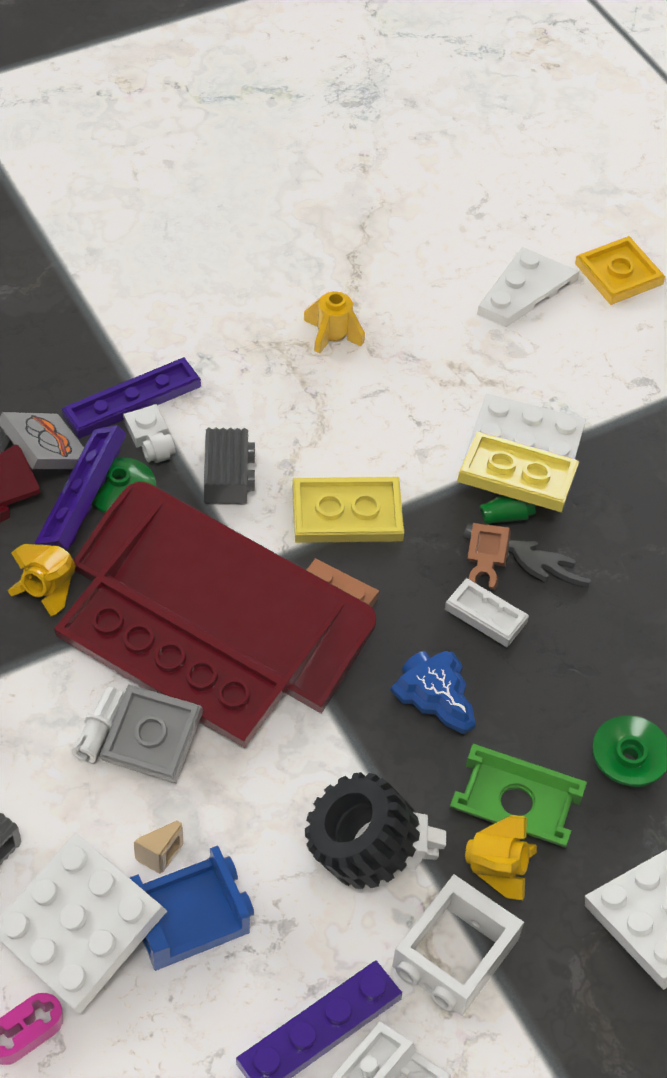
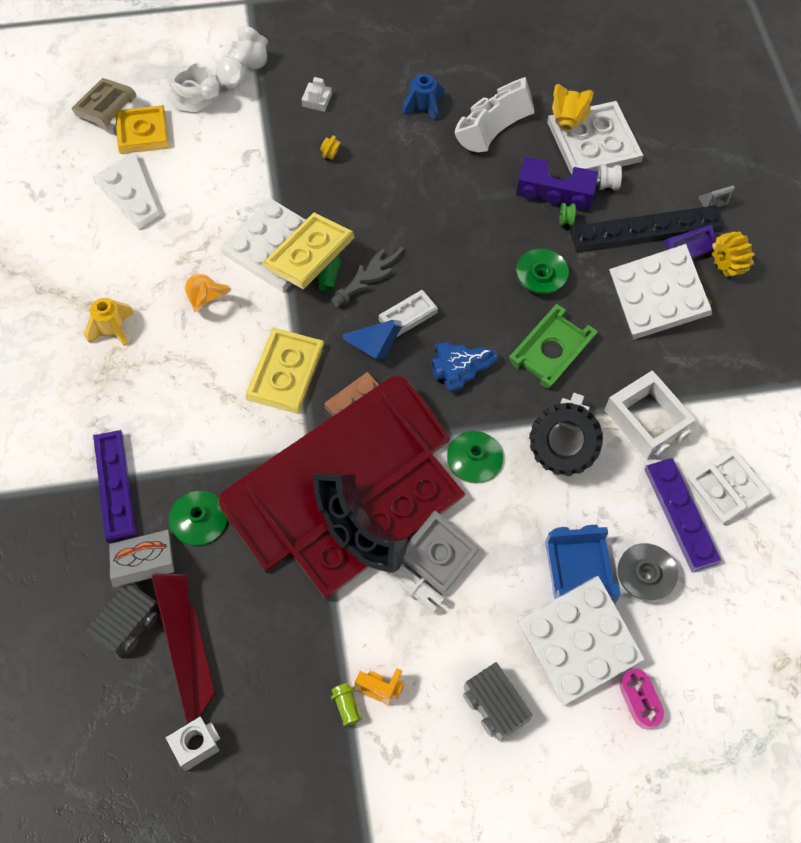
camera: 70 degrees left, 10 degrees up
(45, 573) = (274, 590): yellow brick -> none
(81, 487) = (200, 543): dark purple plate -> none
(148, 622) = (351, 525): none -> black brick
(151, 432) = (152, 481): white plate -> none
(159, 846) = (532, 570): tan slope -> none
(207, 973) = (654, 561): none -> dark grey dish
(227, 465) = (218, 435): dark grey brick -> none
(306, 761) = (471, 467): none -> green dish
(415, 392) = (202, 289): none -> light orange piece
(423, 583) = (375, 339): none -> blue slope
(488, 548) = (362, 293): nougat plate -> none
(500, 855) = (598, 367): yellow brick -> none
(632, 220) = (99, 98): none -> dark tan plate

